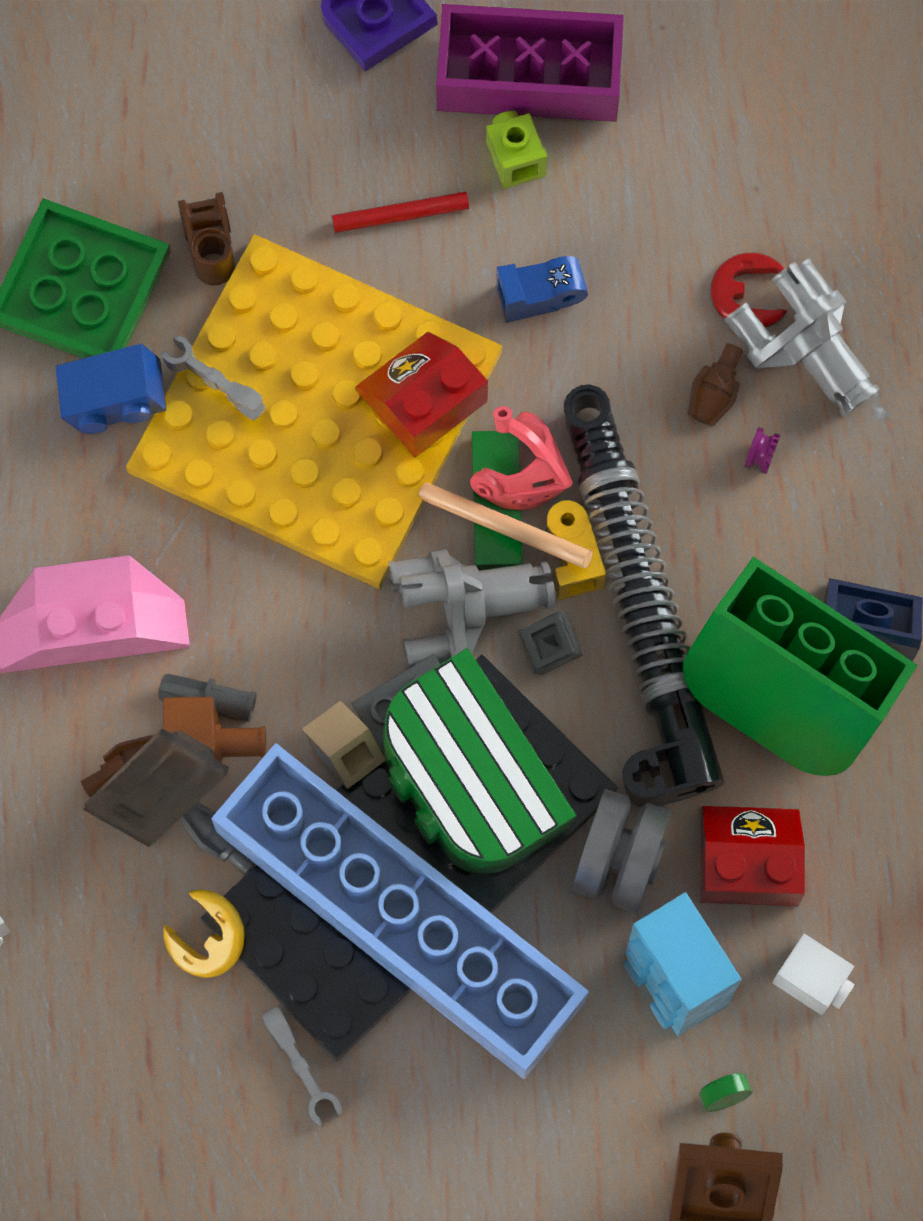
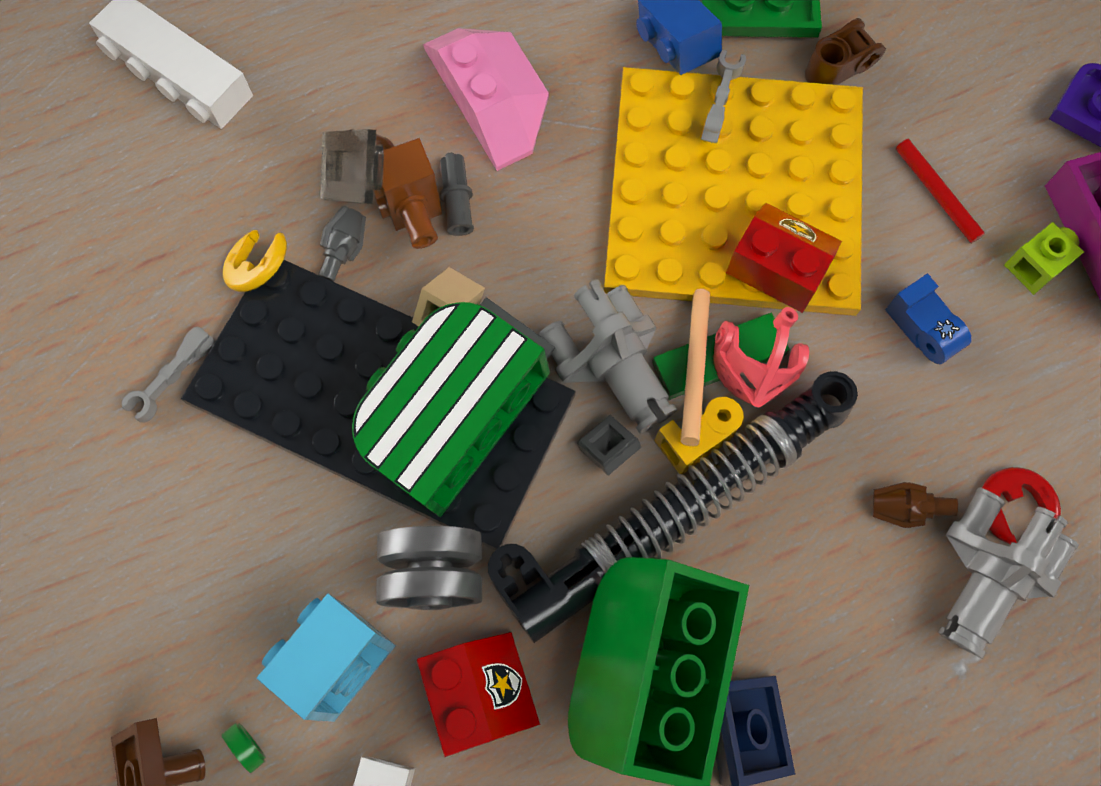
camera: 70 degrees right, 0 degrees up
(400, 910) = (302, 400): light blue brick -> none
(760, 450) = (869, 566): magenta bush -> none

